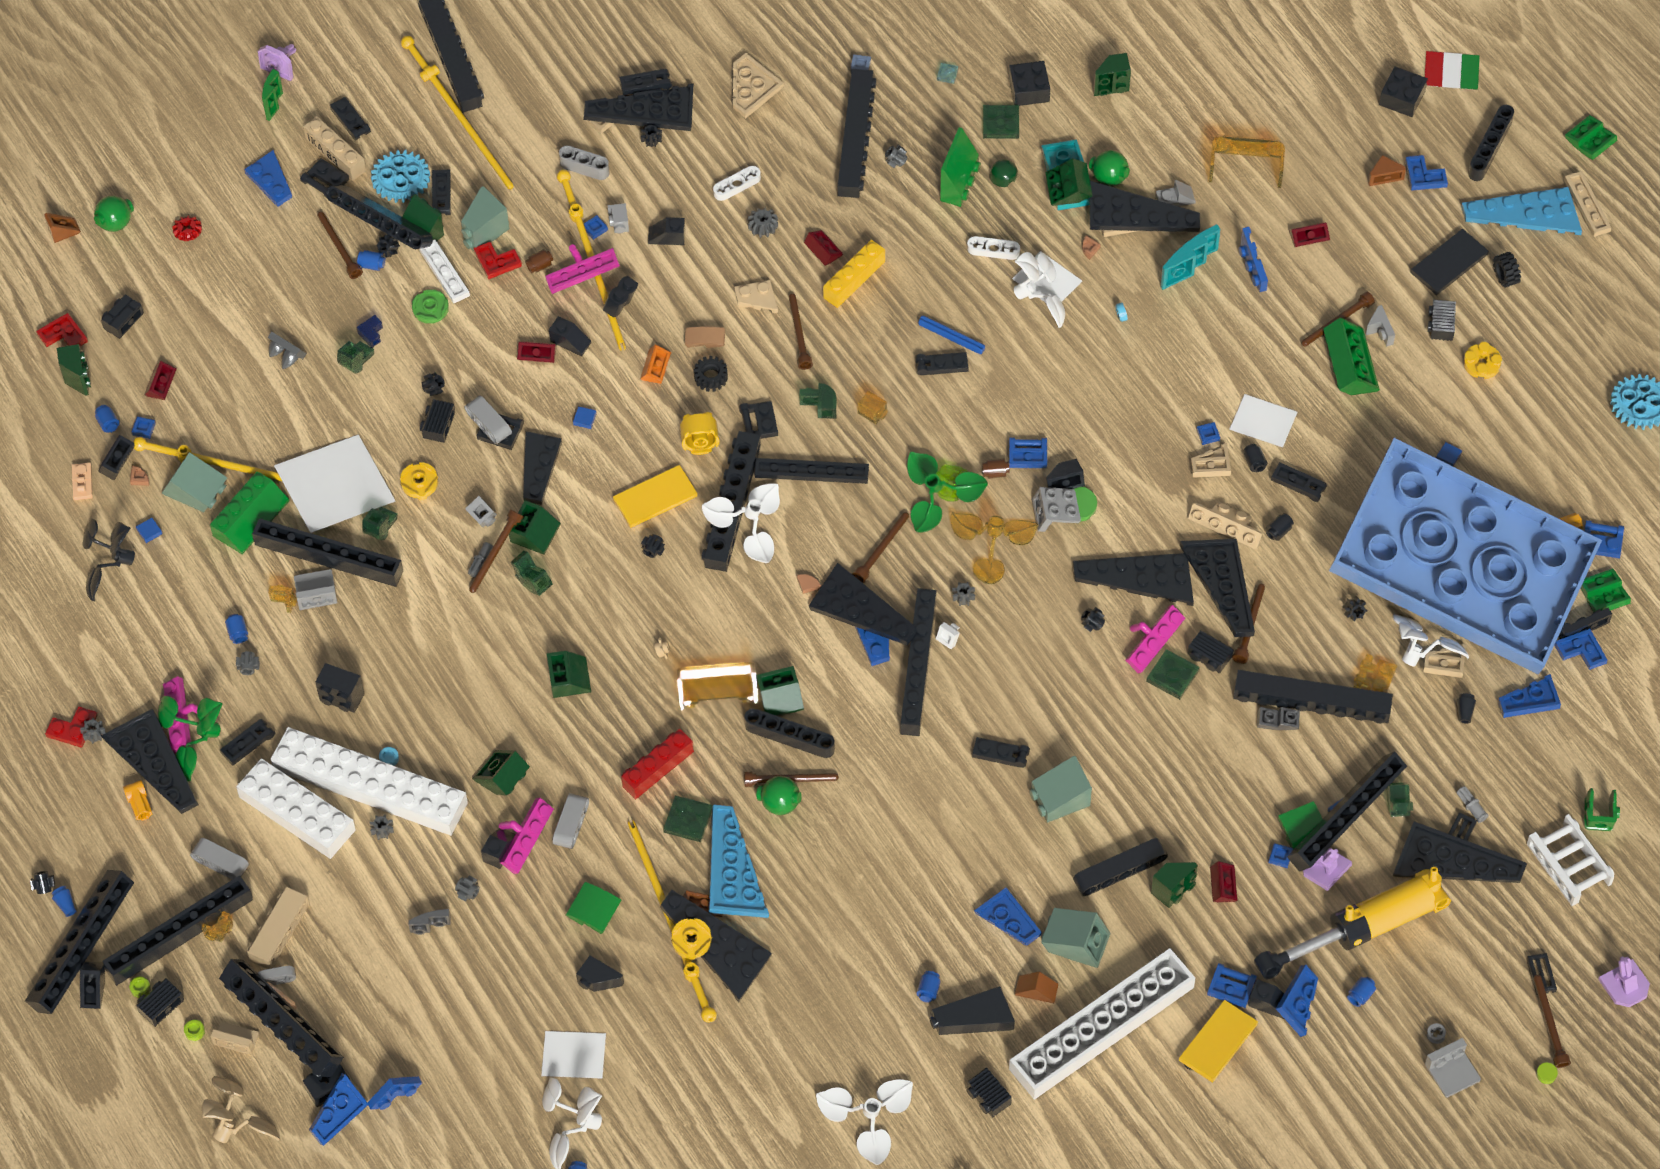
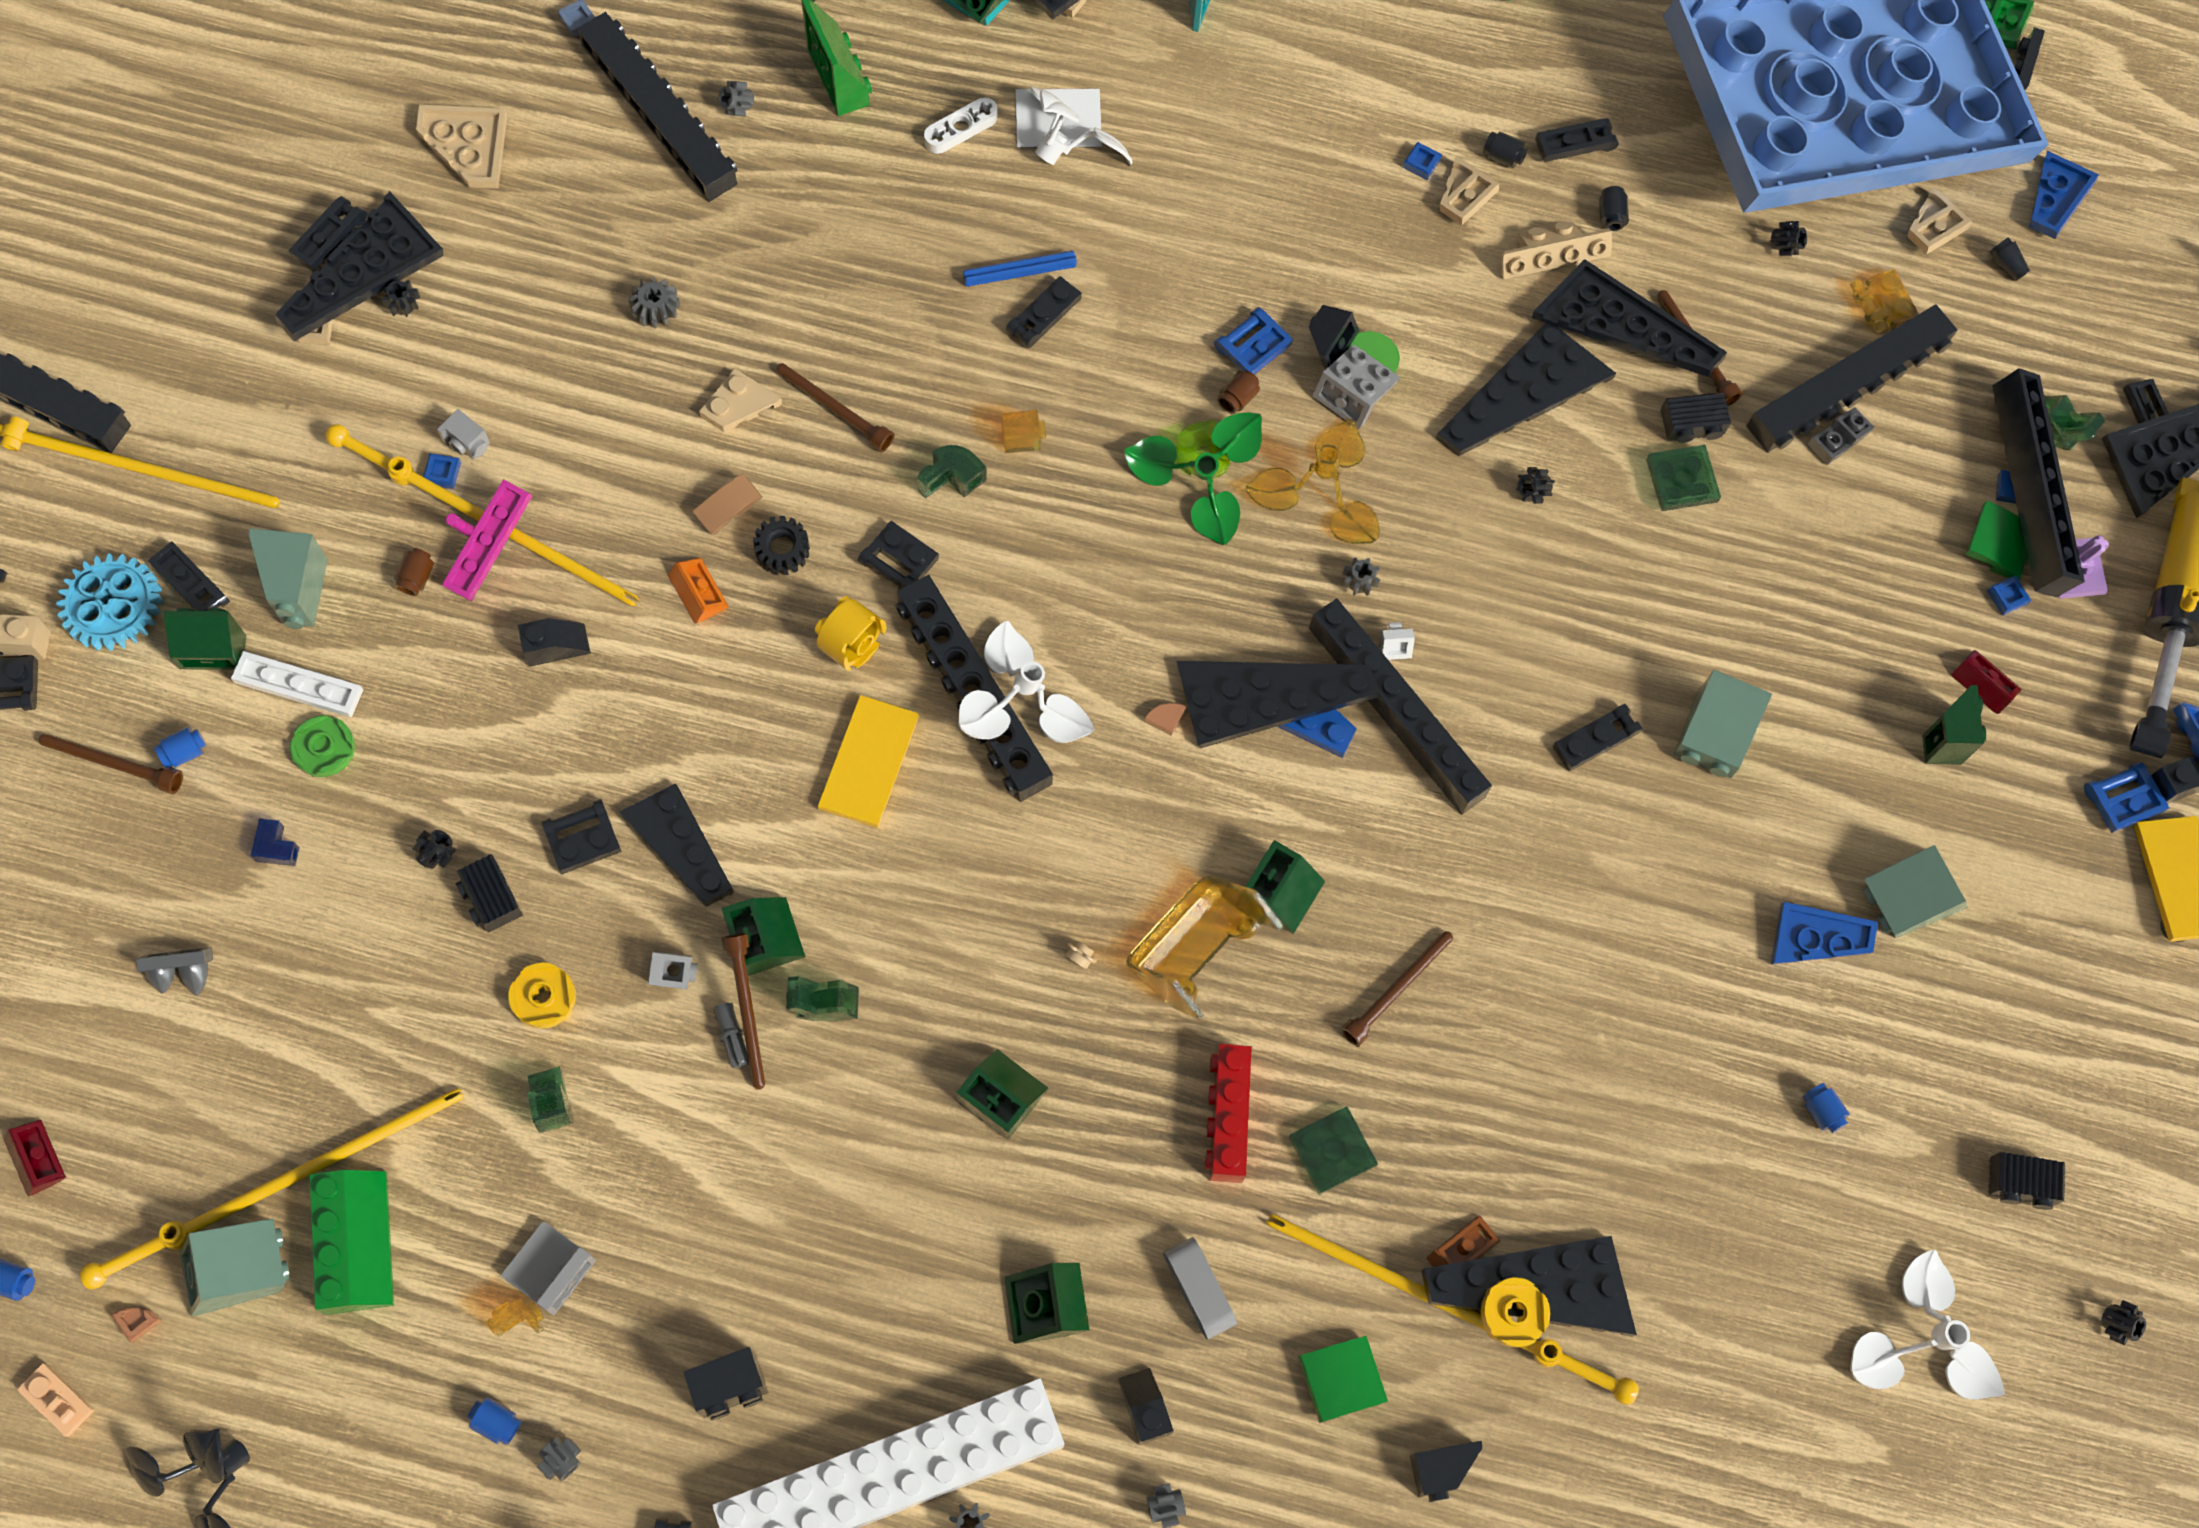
camera: 50 degrees left, 10 degrees up
(116, 457) = (78, 1325): black brick -> none
(143, 427) = (73, 1244): blue tile -> none
(149, 530) = (226, 1387): blue tile -> none
(327, 552) = (517, 1204): black brick -> none
(334, 483) = (429, 1098): white sticker -> none
(353, 356) = (287, 897): clear green brick -> none
(379, 217) = (123, 686): black beam -> none
(388, 245) = (185, 709): black gear -> none
(389, 755) = (877, 1414): medium azure tile -> none
(488, 419) = (560, 838): light grey beam -> none
(496, 264) = (354, 623): red plate -> none
(526, 834) = (1164, 1360): dark pink plate -> none
(536, 352) = (527, 694): dark red slope -> none
(584, 162) = (332, 393): light grey beam -> none
(584, 417) = (676, 731): blue tile -> none
(620, 296) = (571, 535): black brick -> none
(652, 546) = (935, 829): black gear -> none
(668, 232) = (545, 405): black slope -> none
(732, 875) = (1463, 1176): dark azure wing -> none
(733, 190) = (573, 289): white beam -> none
(779, 795) = (1416, 1021): green brick -> none
(795, 740) = (1352, 917): black beam -> none
(811, 470) = (1029, 569): black plate -> none
(822, 247) = (756, 278): dark red slope -> none
(854, 273) = (832, 281): yellow brick -> none
(862, 572) = (1217, 648): reddish brown piece -> none
(974, 1014) = (1911, 1092): black slope -> none
(1003, 173) = (880, 26): dark green hair -> none
(1037, 987) = (1934, 996): dark orange slope -> none
(1090, 247) = (1067, 41): nougat tile -> none
(1101, 1023) = (2058, 978): white brick -> none
(1120, 867) = (1870, 762): black beam -> none
(1121, 312) = (1186, 90): medium azure tile -> none
(1154, 638) = (1621, 451): dark pink plate -> none
(1263, 420) = (1462, 99): white sticker -> none
(1412, 629) = (1901, 236): white plant -> none
(1472, 804) = (2129, 364): light grey axle -> none
(1582, 644) = (2051, 90): blue plate -> none

